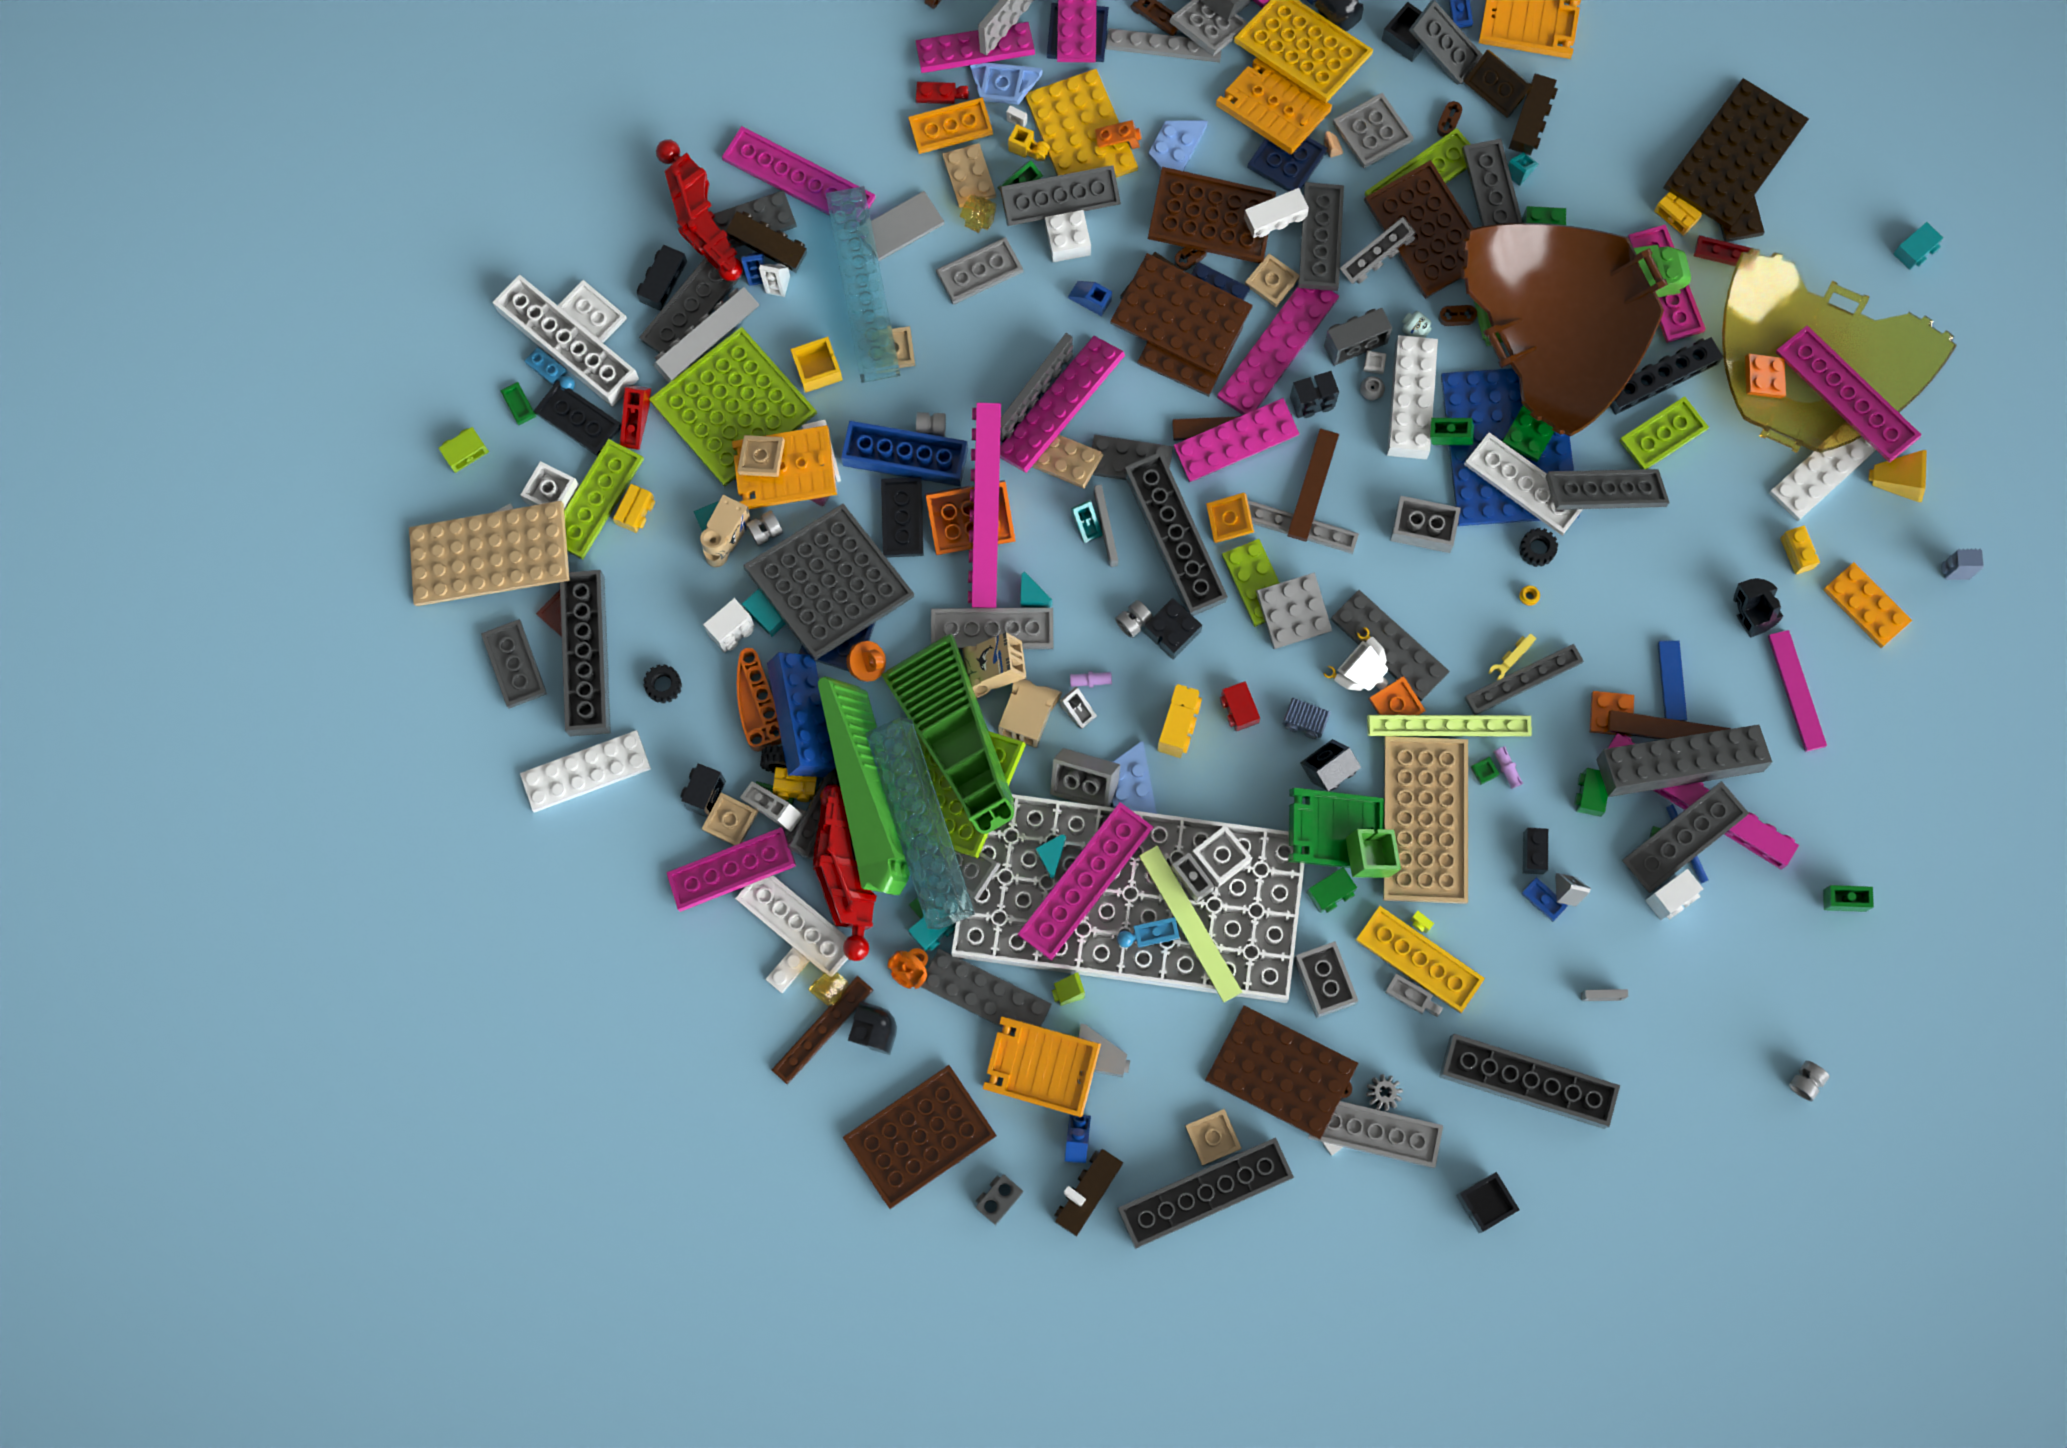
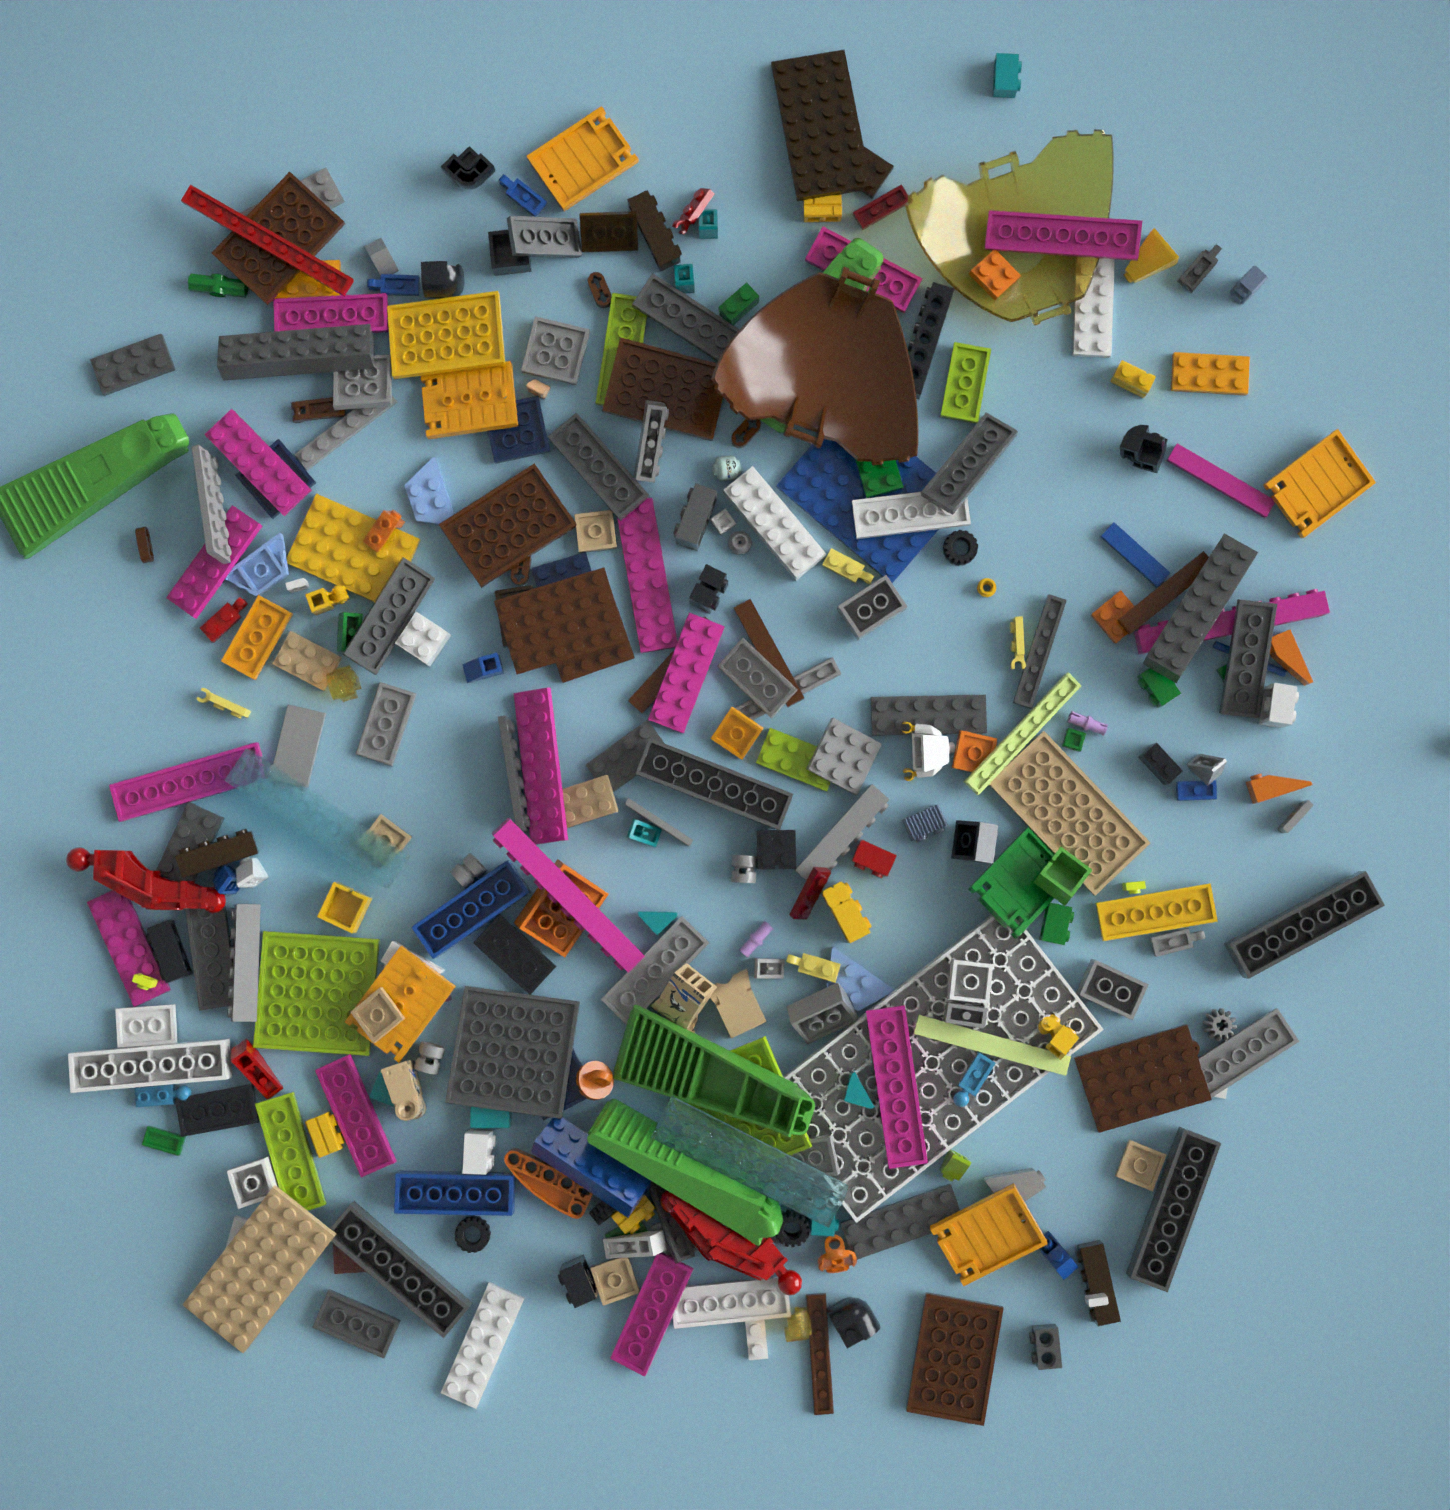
camera: 45 degrees left, 10 degrees up
(463, 449) = (161, 1213): lime brick -> none
(623, 279) = (144, 982): none -> neon yellow plate
(637, 248) = (127, 944): none -> dark pink plate
(669, 517) = (355, 1115): none -> dark pink plate
(682, 639) = (454, 1193): none -> blue brick
(879, 147) = (221, 703): none -> light yellow plate
(886, 913) = (793, 1238): none -> black tyre
(1114, 741) = (816, 967): none -> light yellow plate
(1165, 681) = (810, 893): none -> dark red plate
(1233, 666) = (845, 831): none -> light grey brick
(1249, 969) = (1062, 1037): none -> yellow brick
(1276, 213) = (553, 482): white brick -> none
(1286, 492) = (757, 677): none -> light grey tile
(1435, 479) = (846, 567): none -> light yellow plate
(1452, 431) = (827, 524): green brick -> none
(1488, 1202) = (1354, 1031): black piece -> none
(1575, 126) = (694, 209): none -> plate
(1578, 146) = (708, 224): none -> teal slope
(1608, 954) = (1269, 786): none -> orange slope
(1720, 867) = (1287, 654): none -> orange slope
(1848, 898) = (1387, 595): green brick -> none
(1876, 765) = (1319, 483): none -> light orange door
(1935, 520) = (1199, 269): none -> dark grey hinge

